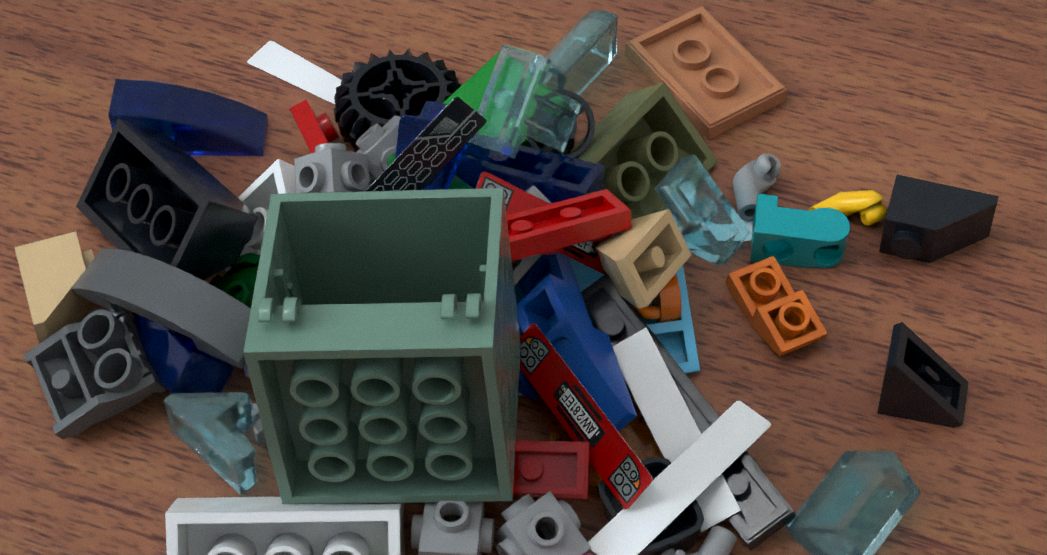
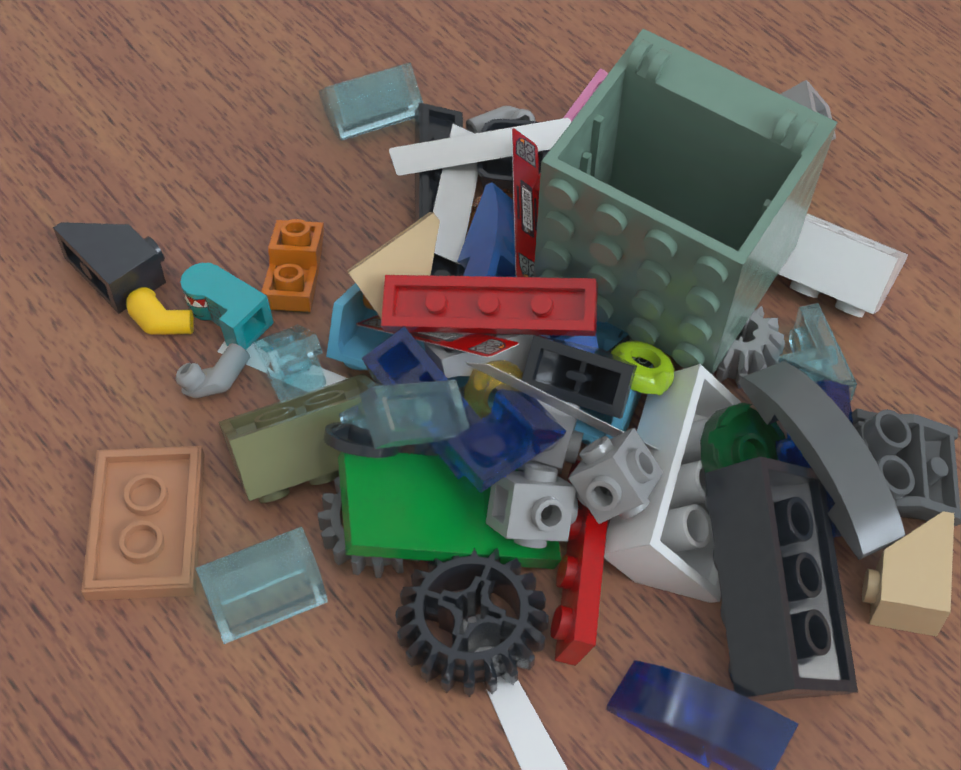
camera: 150 degrees left, 5 degrees up
(920, 383) = (253, 155): black slope -> none

